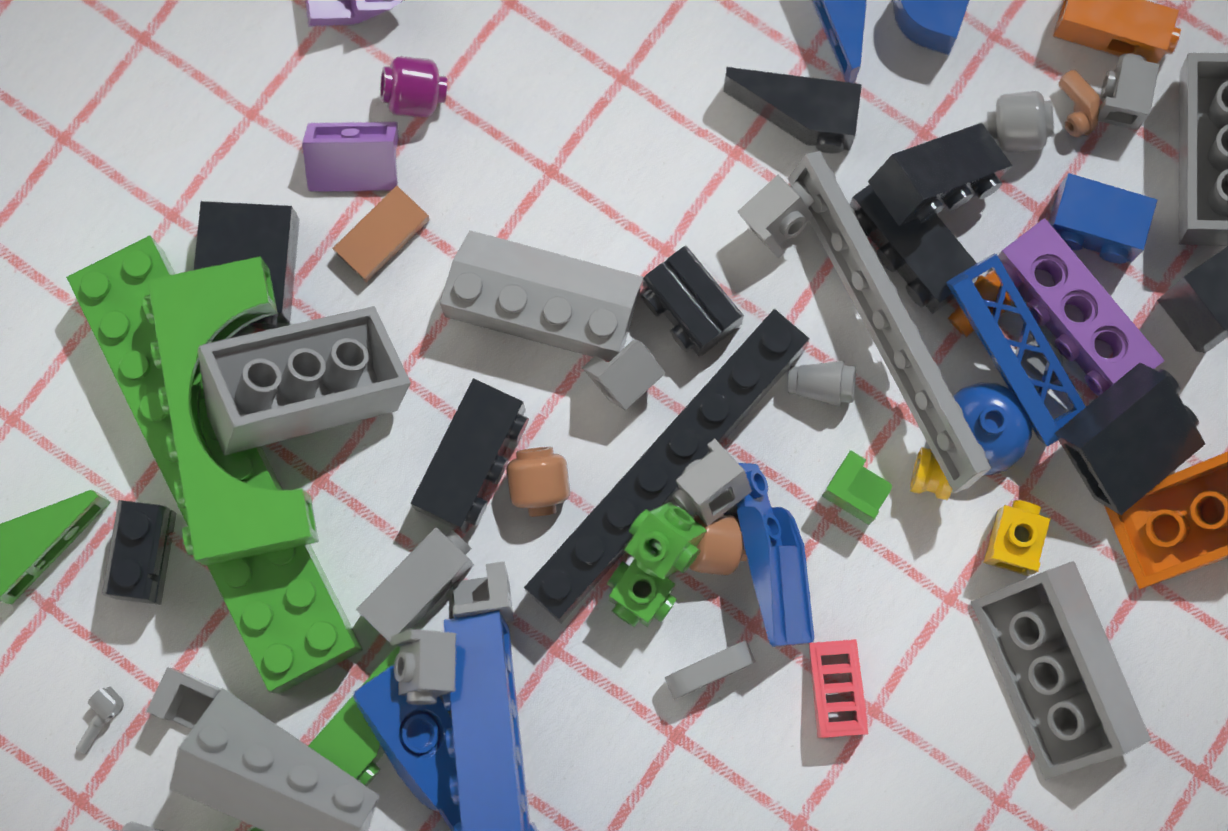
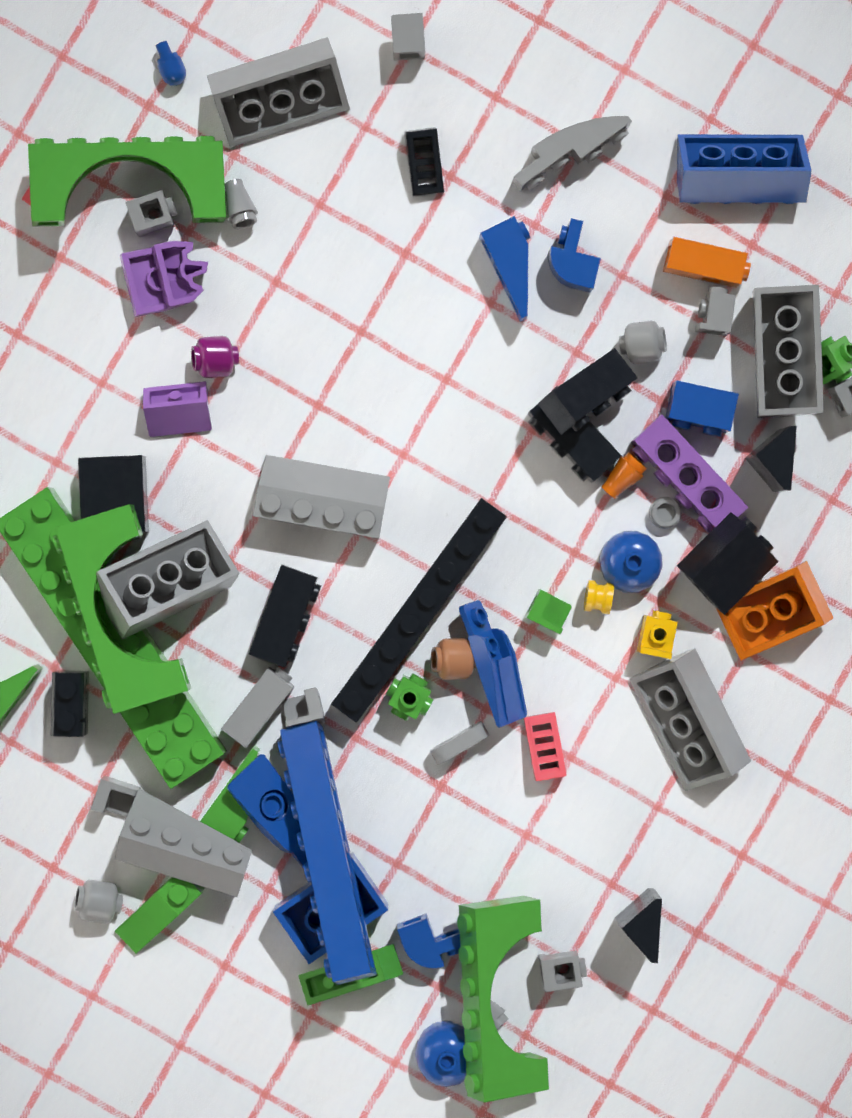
camera: 10 degrees left, 10 degrees up
(107, 706) = (61, 805): light grey hand -> none
(381, 233) = (204, 463): nougat tile -> none
(425, 664) = (272, 763): light grey brick -> none
(538, 480) = (332, 627): nougat head -> none
(626, 375) = (385, 552): light grey panel -> none
(665, 540) = (422, 666): bright green brick -> none
(691, 302) = (424, 493): black brick -> none
(711, 485) = (448, 625): light grey brick -> none
(777, 213) = (478, 427): light grey brick -> none
(807, 108) = (496, 347): black slope -> none
(823, 382) = (519, 540): light grey cone -> none
(890, 326) = (558, 496): light grey plate -> none
(1003, 356) = (638, 514): blue fence -> none
(1086, 104) = (687, 321): nougat arm -> none

